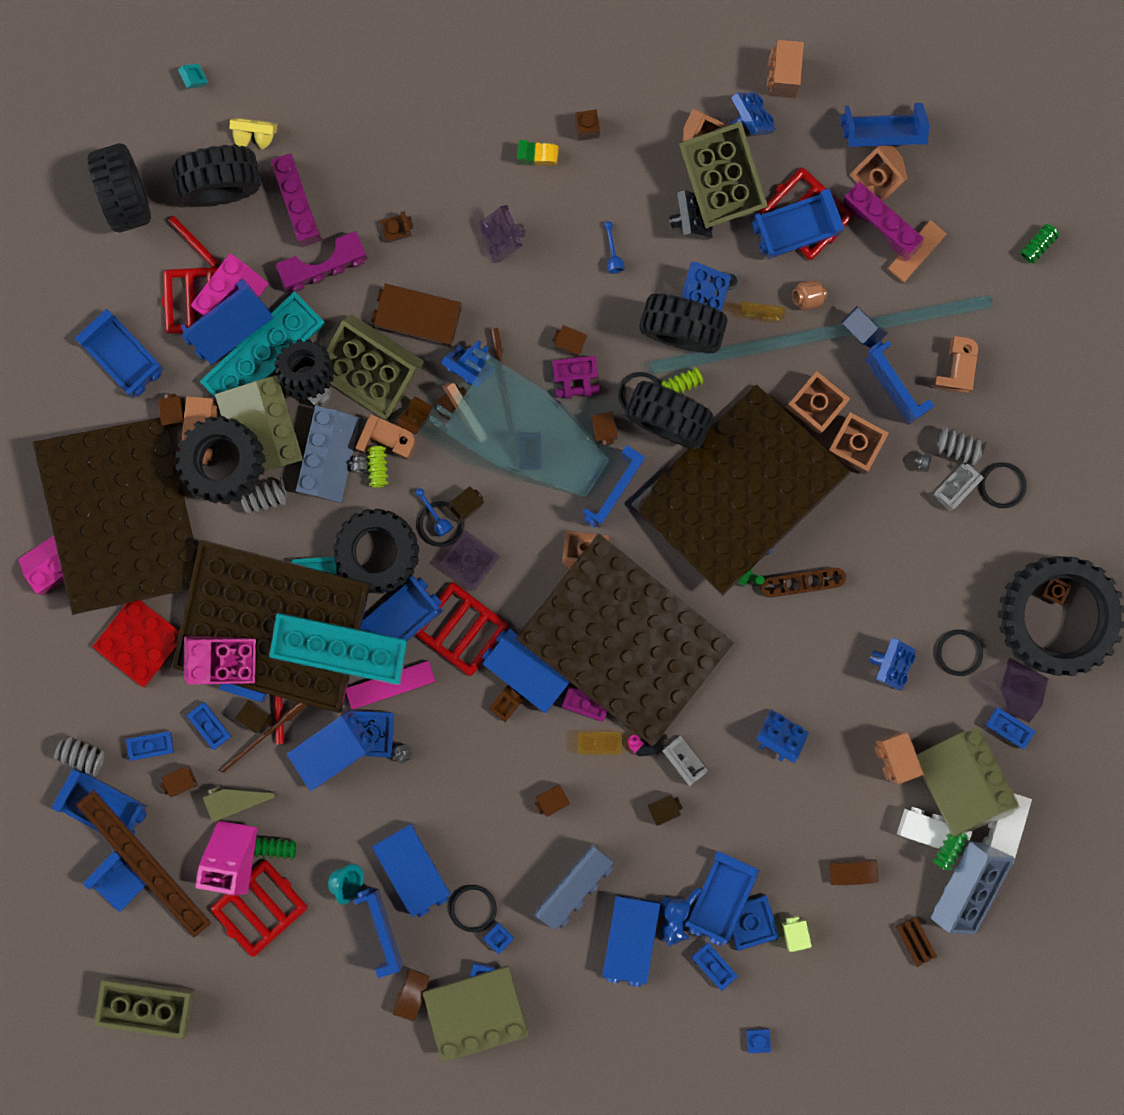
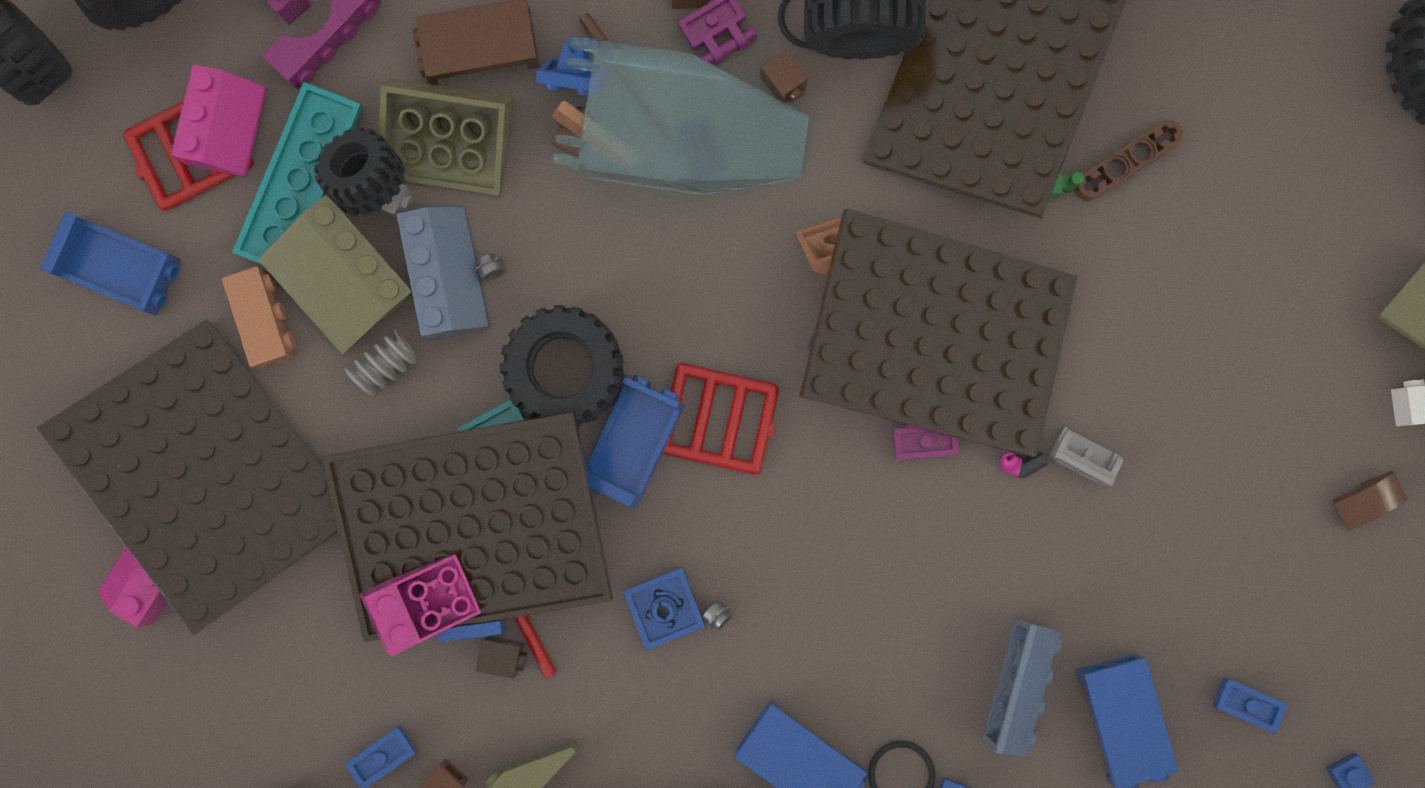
camera: 25 degrees left, 0 degrees up
(138, 642) = (304, 628): red plate -> none
(171, 410) = (211, 307): reddish brown brick -> none
(193, 241) = (143, 78): red bar -> none
(197, 444) = (261, 329): black tyre -> none
(209, 725) = (447, 695): blue plate -> none
(227, 324) = (231, 159): blue panel -> none
(292, 712) = (545, 635): reddish brown piece -> none
(331, 750) = (624, 655): blue panel -> none
(338, 648) = (571, 516): teal plate -> none
(377, 466) = (514, 258): lime piece -> none
(378, 690) = (660, 533): dark pink tile -> none
(388, 435) = (508, 211): nougat piece -> none
(415, 416) = (534, 170): reddish brown bracket -> none
(426, 538) = (601, 294): black tyre -> none
(441, 526) = (633, 297): blue hinge -> none
(466, 504) = (651, 254): dark brown brick -> none
(467, 544) = (676, 307): clear purple plate -> none
(506, 703) = (822, 486): reddish brown bracket -> none
(524, 671) = (827, 434): blue panel -> none
(552, 800) = (940, 587): reddish brown brick -> none
(599, 743) = (966, 484): clear yellow plate -> none
(635, 460) = (841, 97): blue panel -> none
(665, 809) = (1091, 531): dark brown brick -> none
(675, 913) = (1170, 661): blue animal -> none
(722, 899) = (1220, 613): blue panel -> none
(755, 924) = (1268, 626): blue tile -> none
(782, 736) = (1199, 368): blue plate -> none
(796, 934) = (1336, 615): yellowish green brick -> none
(894, 663) = (1298, 208): blue plate -> none
(898, 757) = (1363, 325): nougat brick -> none
(980, 650) = (1363, 188): black tyre -> none

